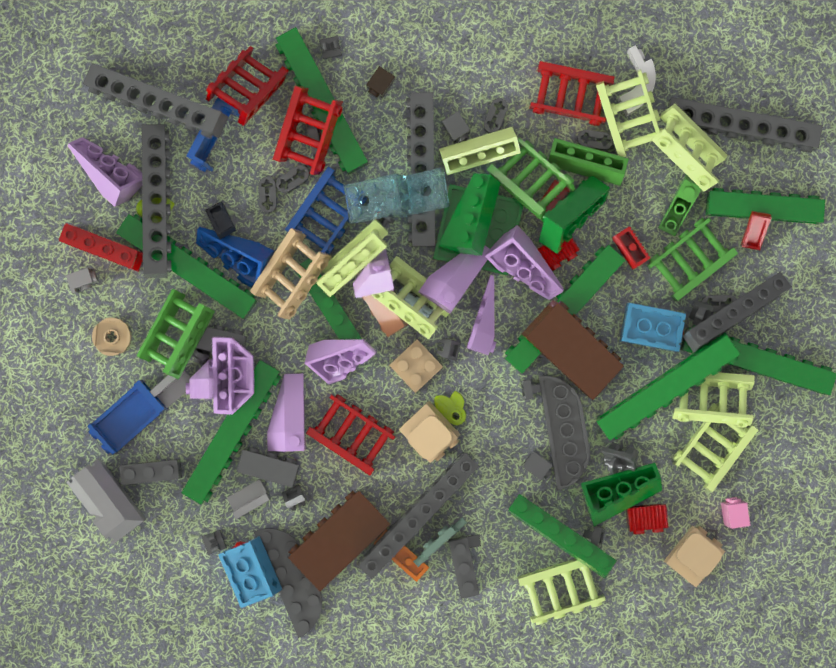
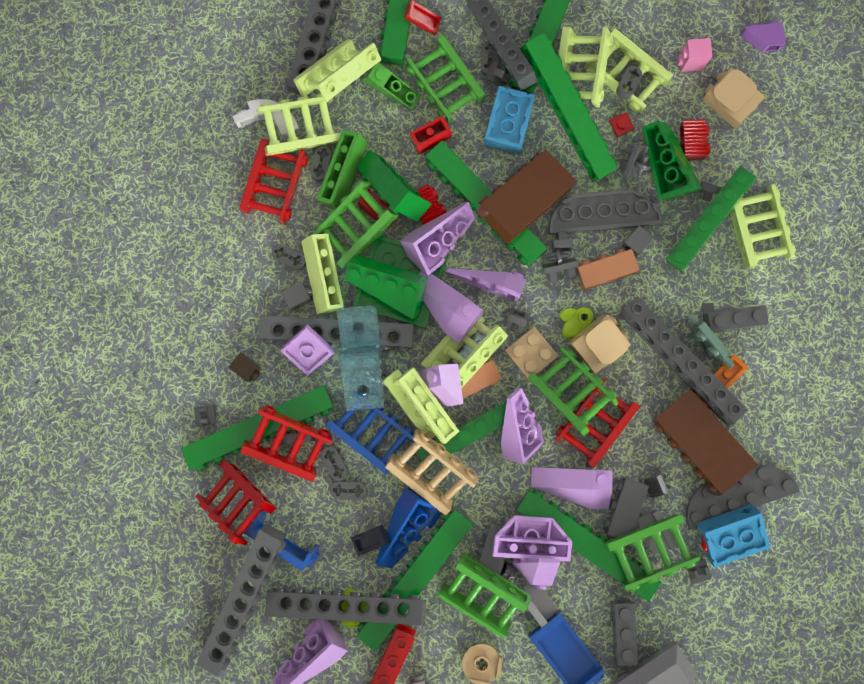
camera: 85 degrees left, 5 degrees down
(248, 494) = (654, 531): none -> bright green fence
(375, 390) = (567, 408): none -> bright green fence
(401, 142) = (307, 350): none -> lavender tile
(506, 436) = (607, 269): none -> nougat brick
(508, 388) = (569, 265): none -> dark grey hips
(658, 443) = (621, 124): none -> red plate
(701, 443) = (626, 81): none -> dark grey beam
(762, 586) = (765, 36): none -> medium lavender slope

